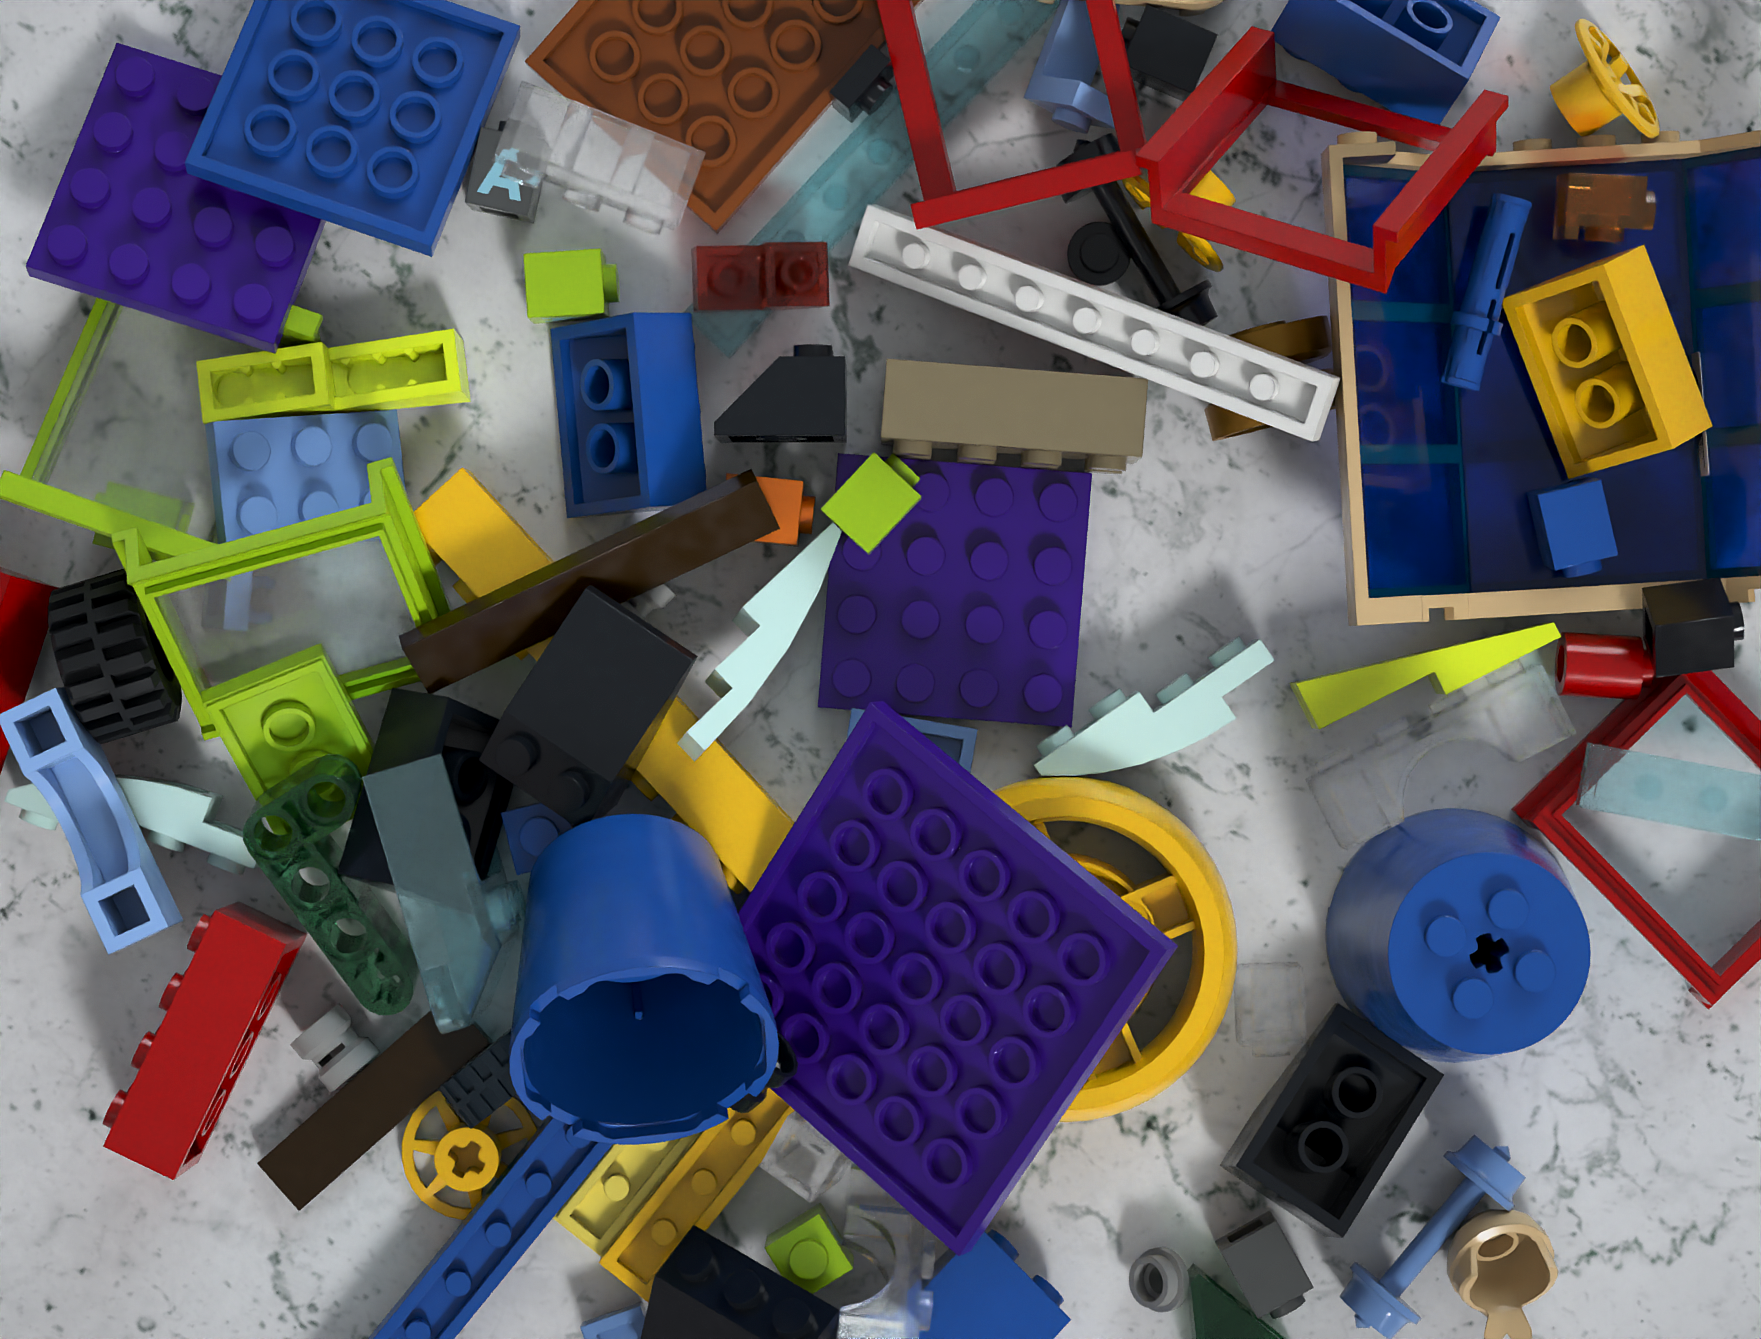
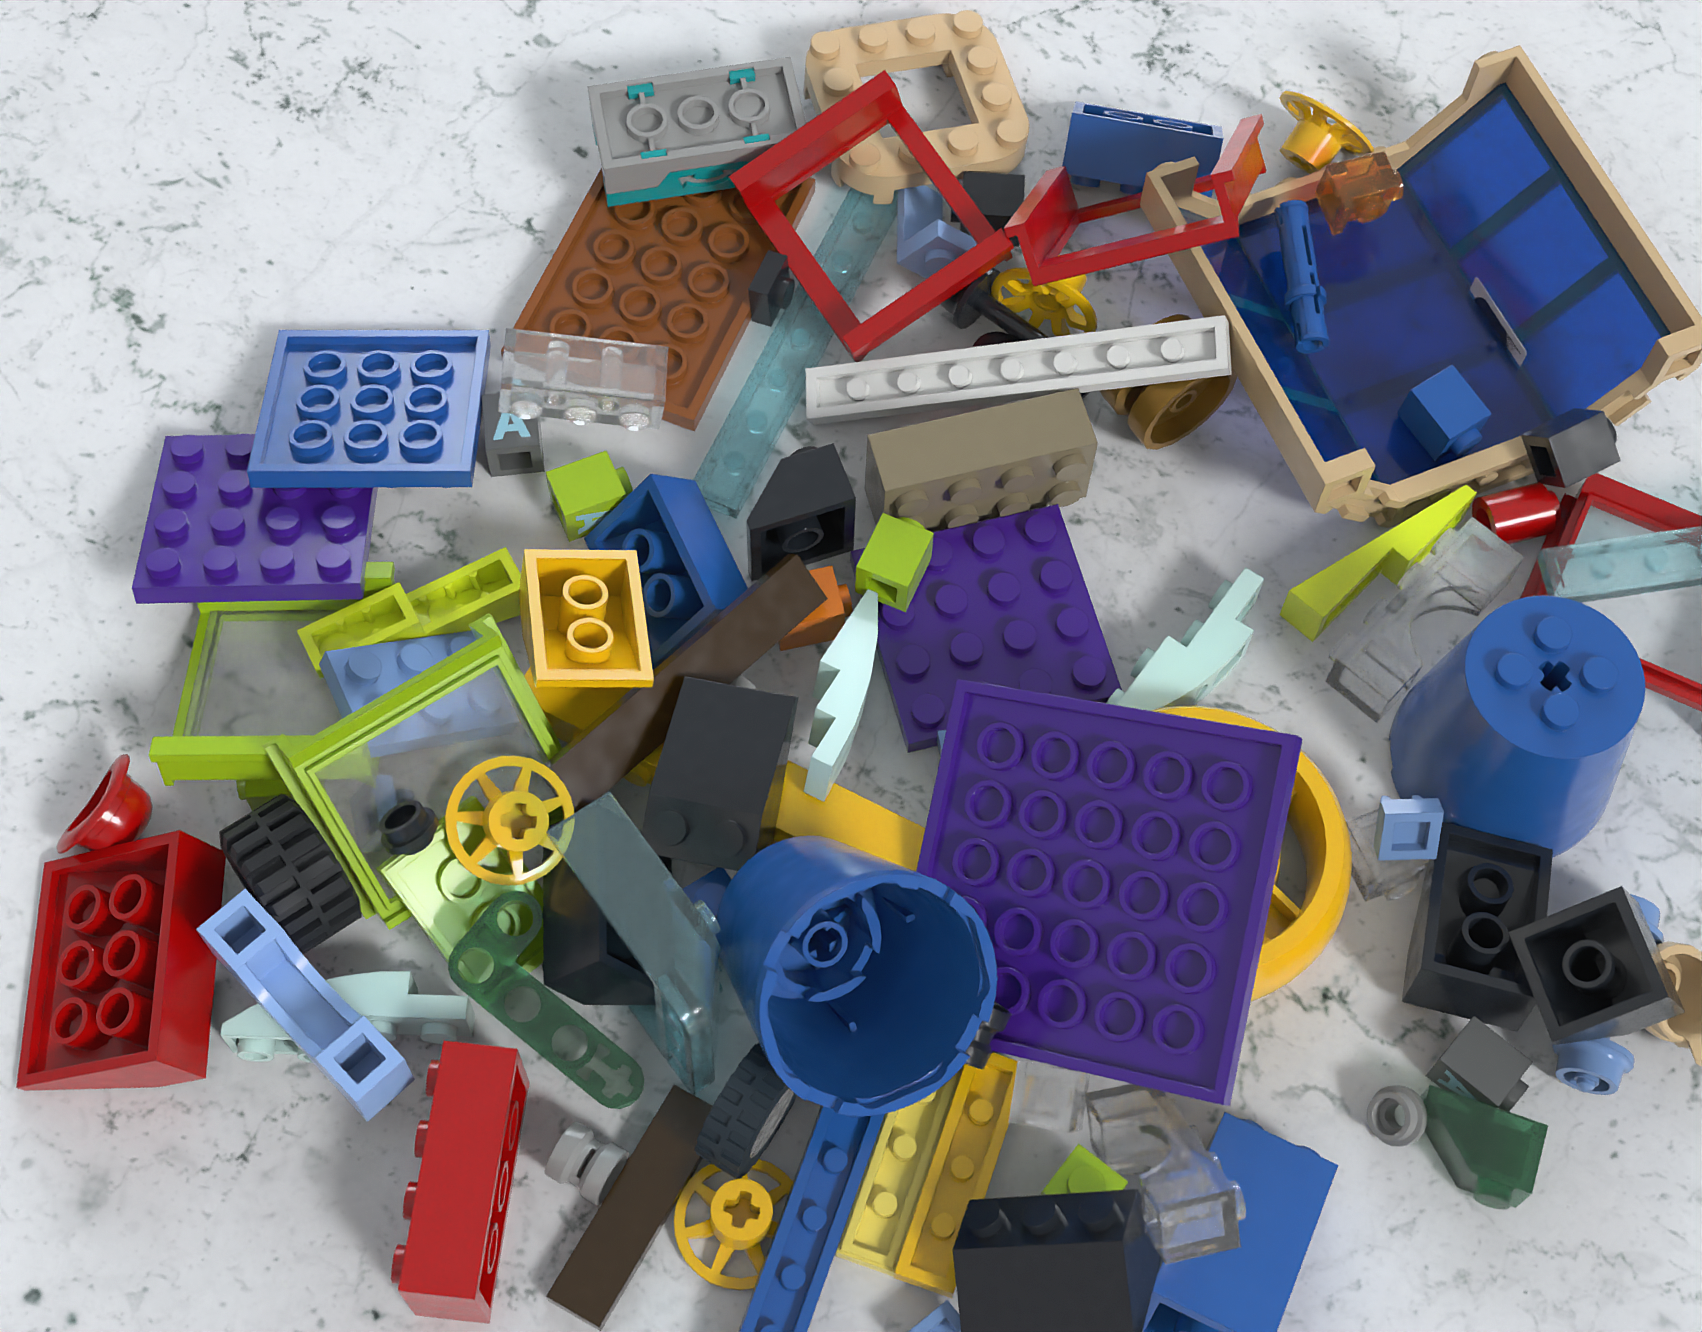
camera: 25 degrees left, 25 degrees down
(240, 674) = (408, 828): none -> black plate
(352, 696) = (510, 820): none -> yellow wheel
(500, 483) = (584, 619): none -> yellow slope
(760, 277) = (748, 440): clear red slope -> none
(1292, 1012) = (1408, 828): none -> medium blue tile
(1411, 1235) = (1596, 970): none -> black slope
(1607, 363) = (1413, 294): yellow slope -> none

